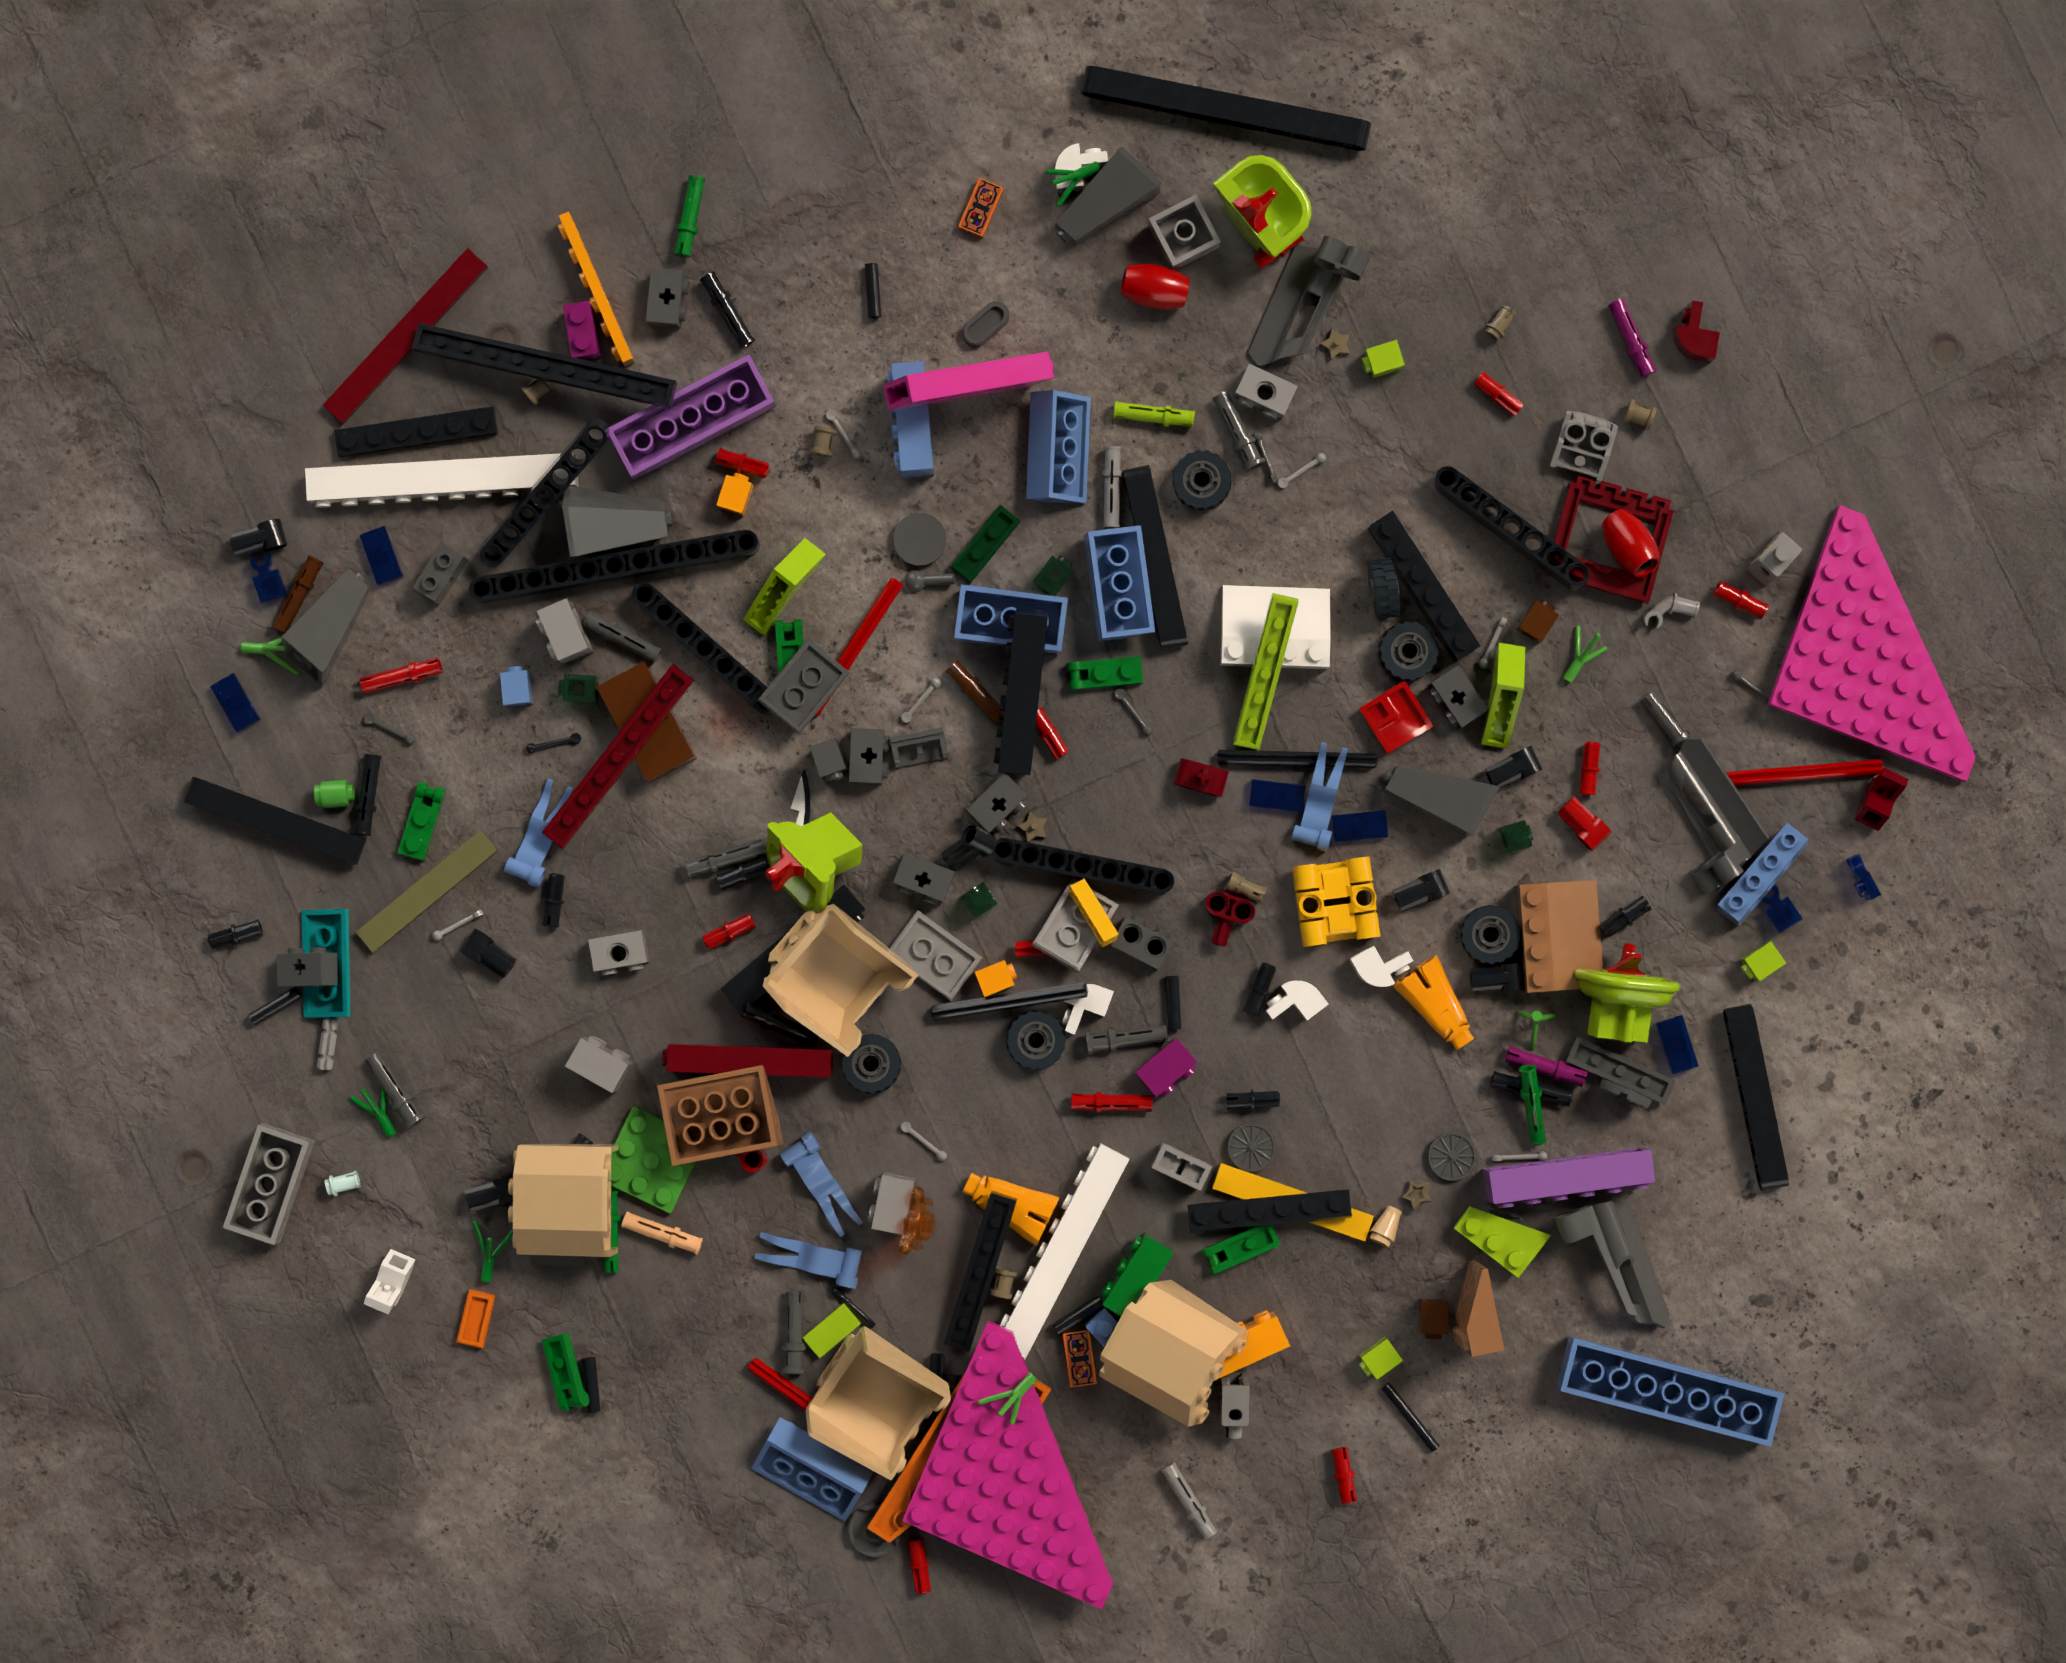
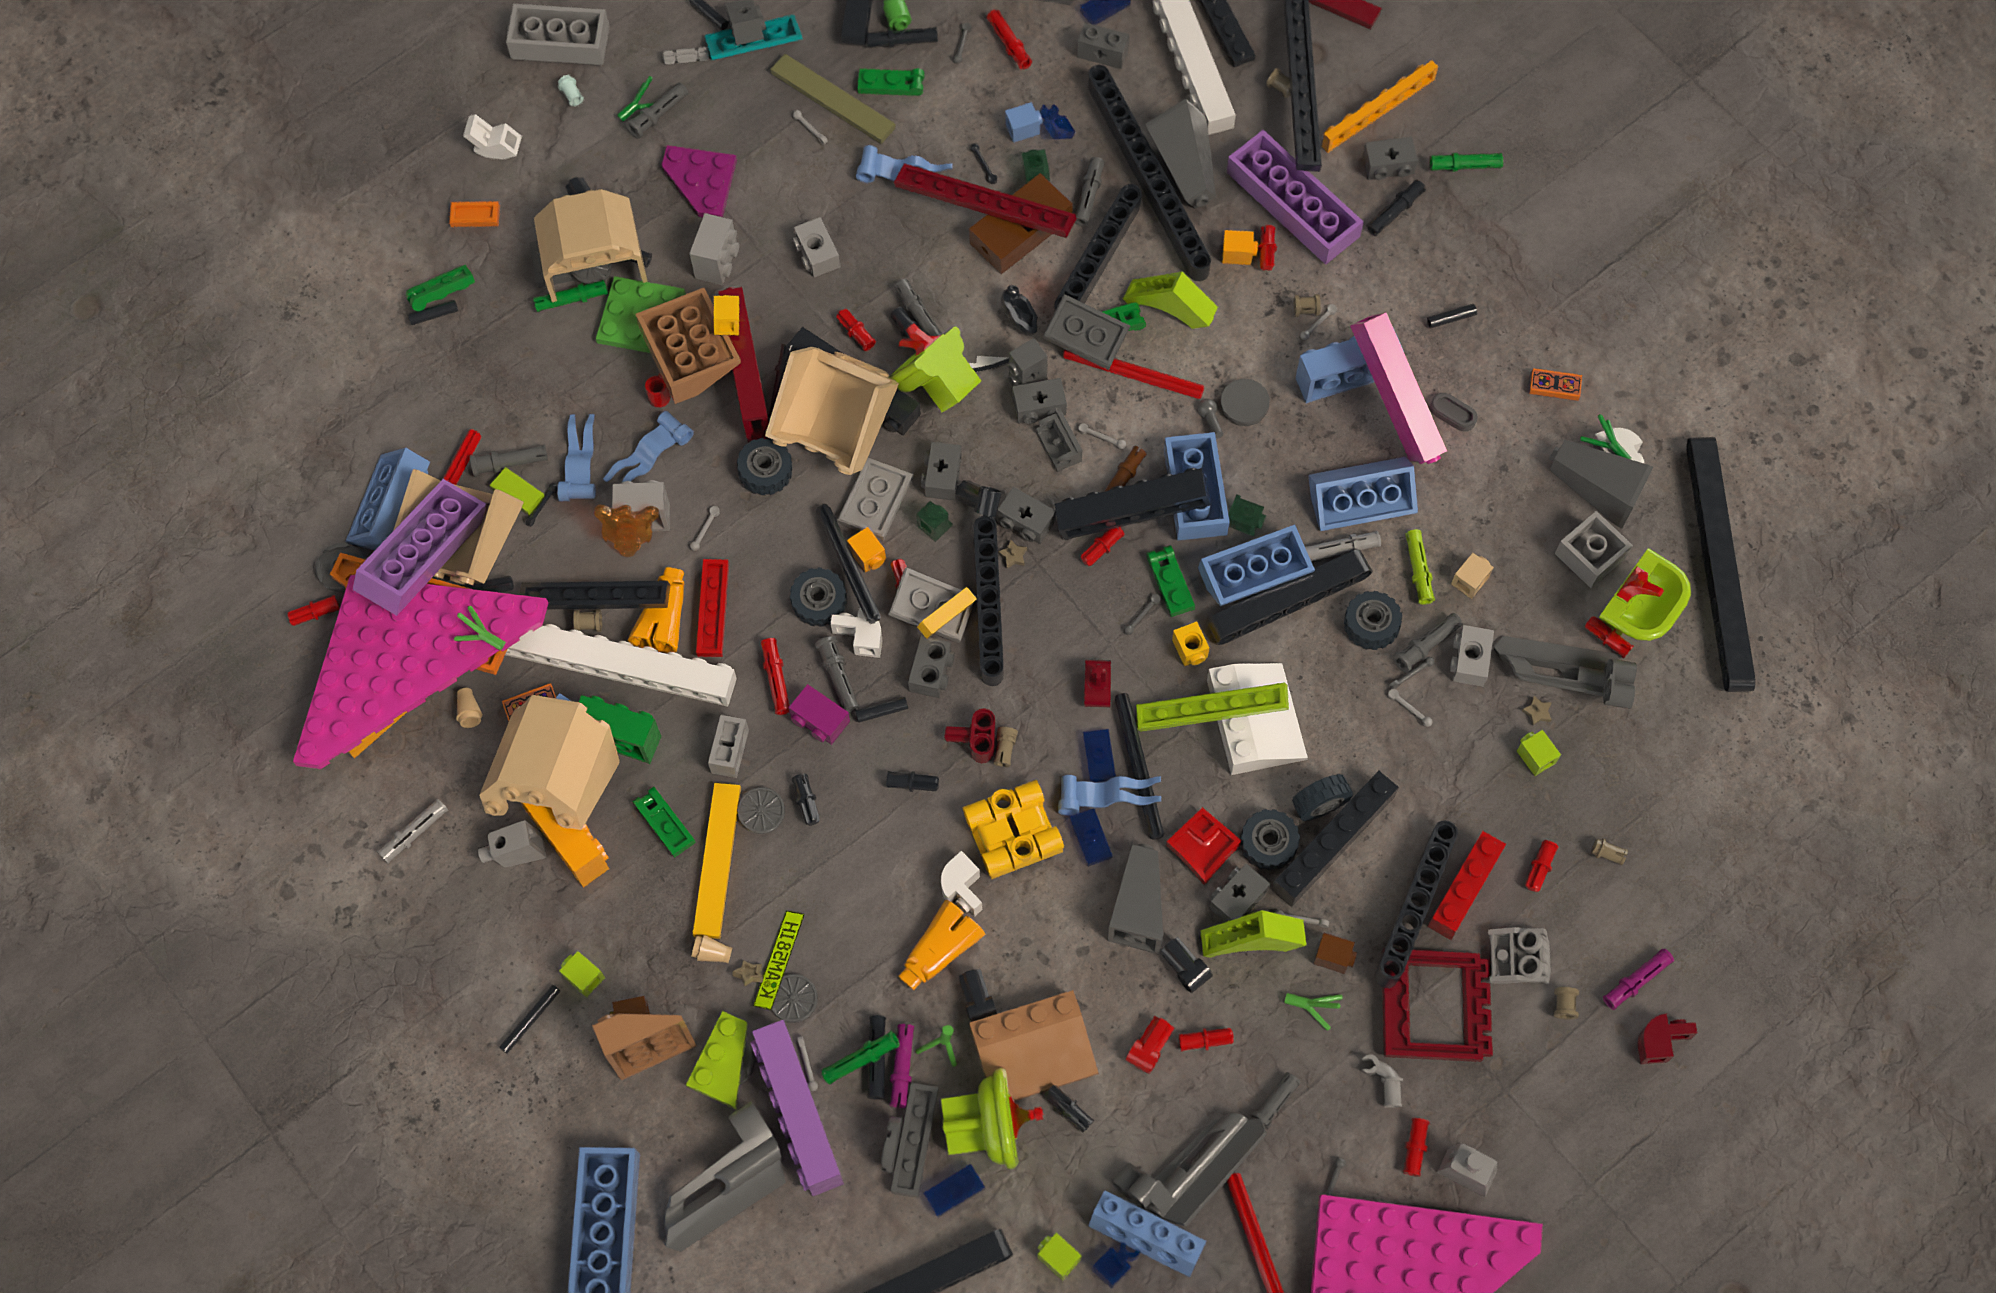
camera: 80 degrees right, 20 degrees down
(483, 950) = (792, 147): black piece -> none
(488, 1261) = (528, 210): green plant -> none
(494, 1059) = (701, 177): none -> magenta plate
(528, 651) = (1056, 125): none -> clear blue plate
(547, 481) = (1204, 96): black beam -> none
(553, 900) = (848, 190): black axle -> none
(564, 632) = (1080, 141): light grey brick -> none
(582, 331) = (1340, 101): magenta brick -> none
(663, 1233) = (575, 345): light nougat pin -> none
(706, 1068) = (726, 315): none -> yellow brick
(753, 750) = (1019, 310): none -> black arm
(898, 1442) = (419, 547): none -> medium lavender brick
(985, 544) = (1257, 456): dark green tile -> none
(1019, 1151) = (712, 608): none -> red plate
(1070, 1423) = (468, 711): none -> tan cone
(1078, 1315) = (564, 687): black piece -> none
(1155, 286) = (1536, 536): red piece -> none
(1172, 677) = (1190, 634): none -> yellow brick
(1178, 363) = (1472, 575): none -> tan brick
(1269, 1211) = (703, 836): black plate -> none
(1301, 994) = (915, 816): white brick -> none
(1344, 1475) = (461, 967): red pin -> none
(1410, 1162) = (778, 960): none -> clear neon green sticker
(1426, 888) = (1048, 912): black piece -> none
(1478, 947) = (1014, 965): black wheel -> none
(1502, 473) = (1466, 885): none -> red brick
(1516, 836) = (1120, 982): clear green brick -> none
(1630, 543) = (1438, 1019): red piece -> none

